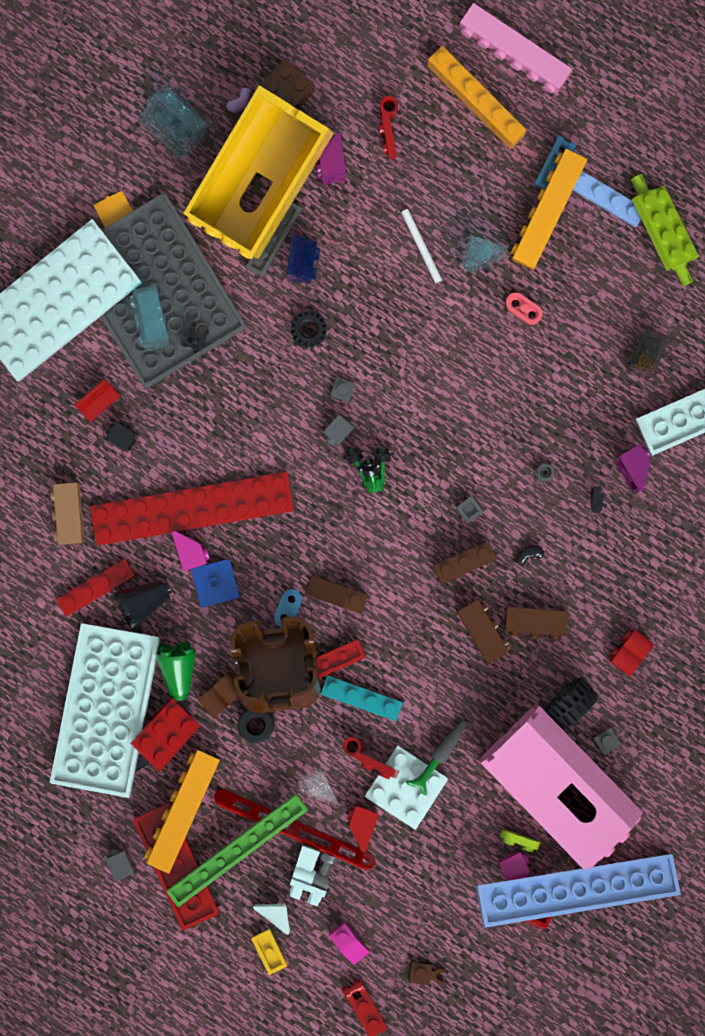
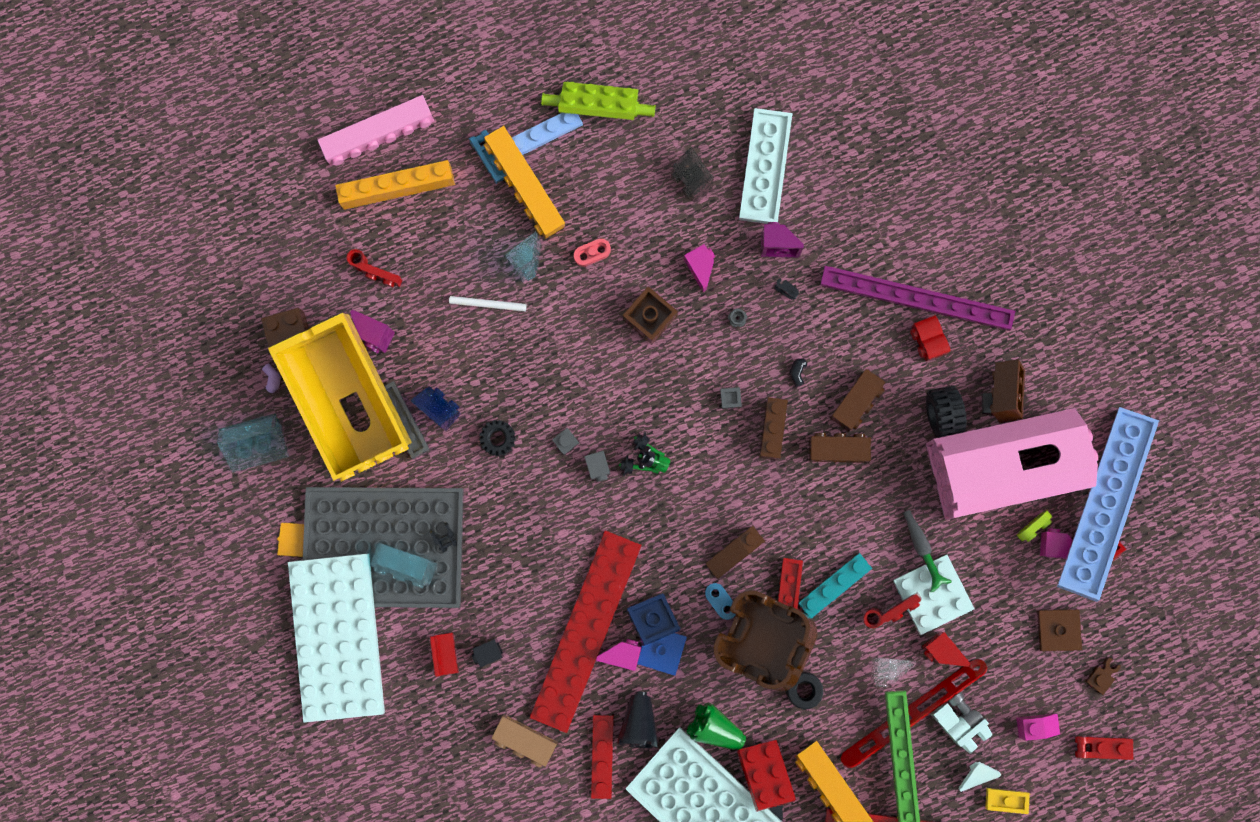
camera: 55 degrees left, 5 degrees down
(219, 696) = (761, 706): reddish brown brick -> none
(236, 559) = (653, 619): none -> dark blue plate
(442, 913) = (1059, 630): none -> reddish brown plate
(498, 394) = (650, 315): none -> reddish brown brick
(572, 411) = (700, 263): none -> dark pink slope
(624, 747) = (1008, 391): none -> reddish brown brick
(660, 619) = (917, 298): none -> magenta plate

